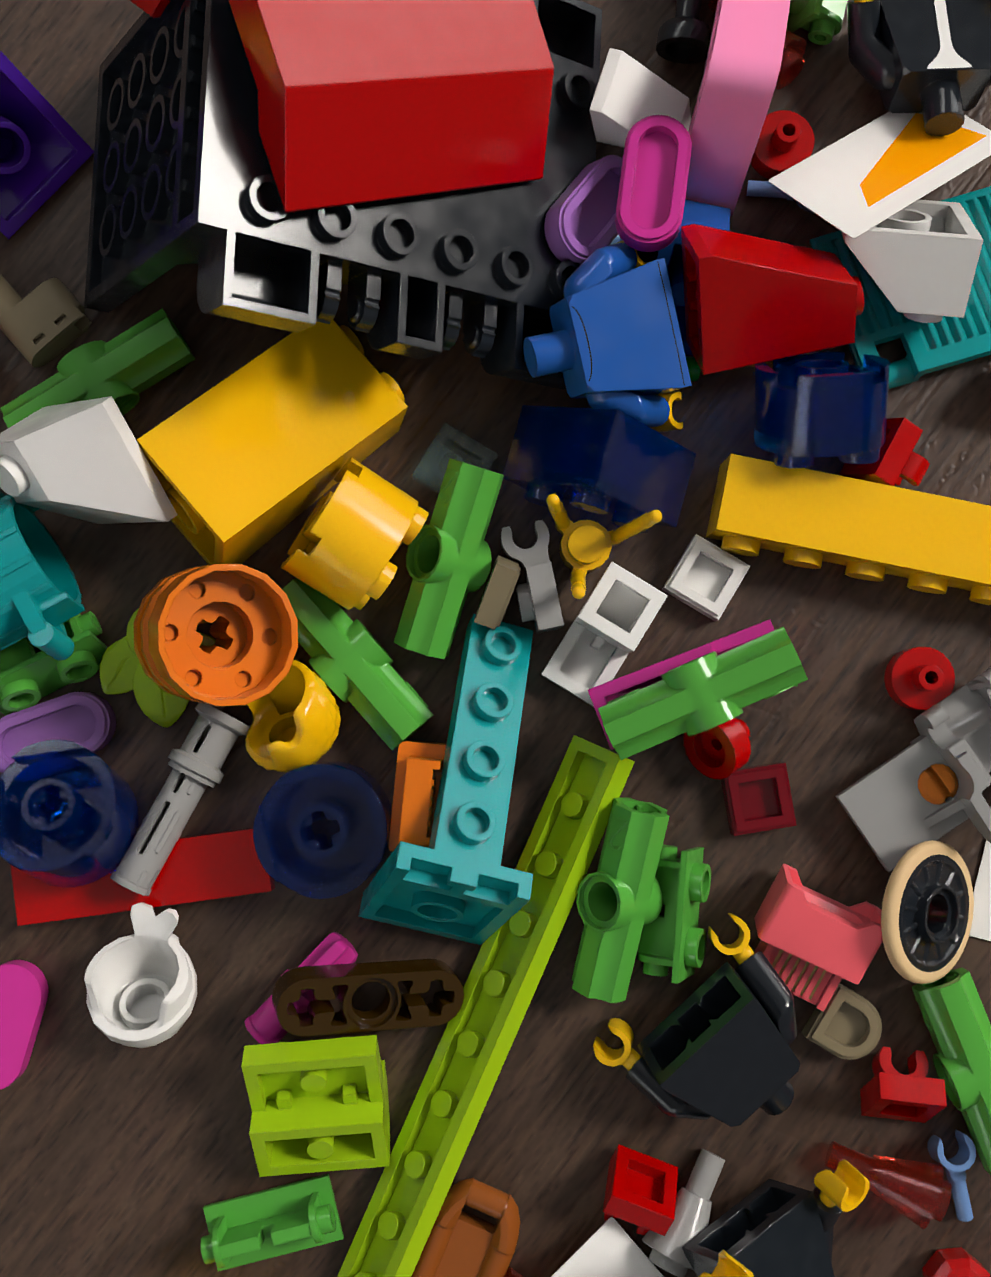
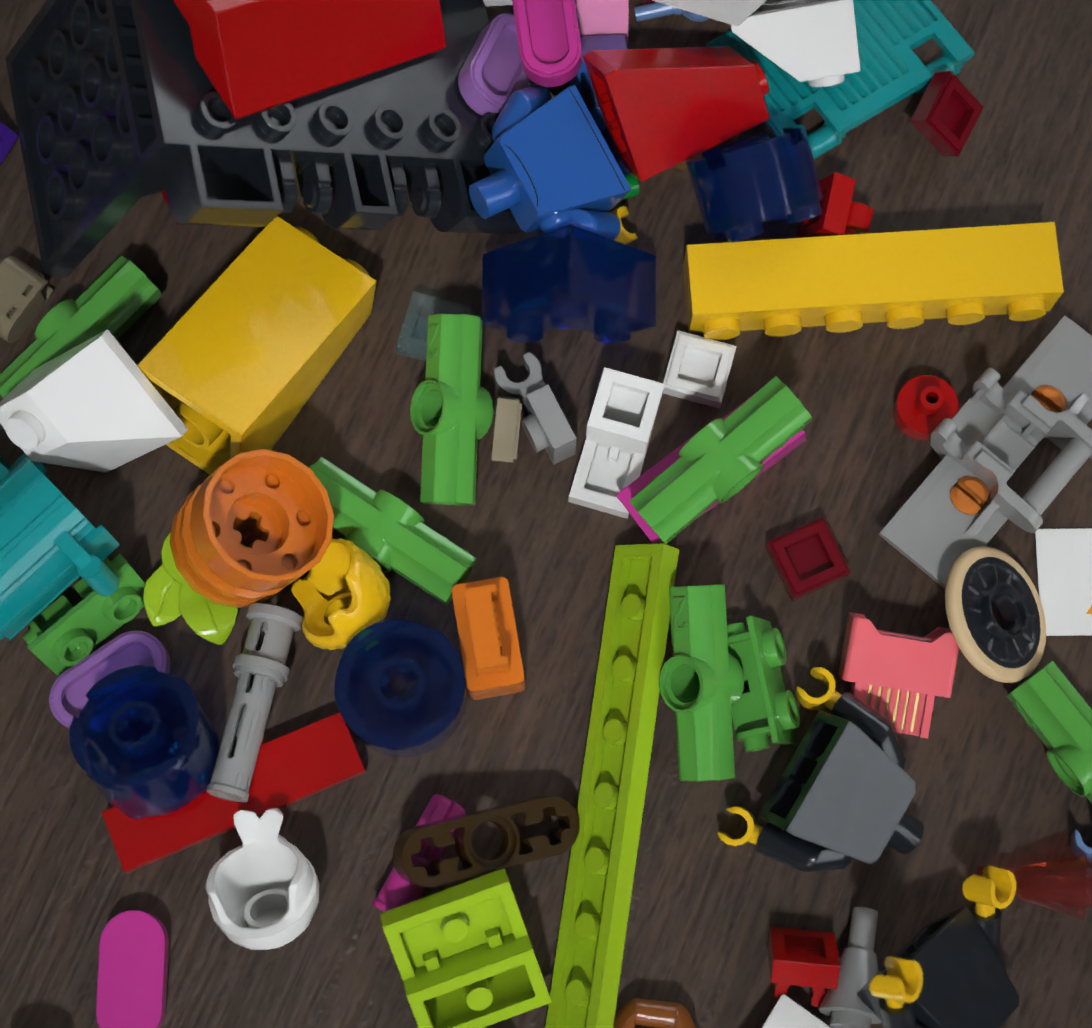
camera: 15 degrees left, 10 degrees down
(353, 536) = (358, 409): yellow brick -> none
(459, 880) = (539, 697): teal bracket -> none
(589, 544) = (578, 363): yellow plant -> none
(720, 749) = (753, 516): red tile -> none
(847, 1026) = (954, 749): dark tan tile -> none
(901, 1095) = (1026, 796): red tile -> none

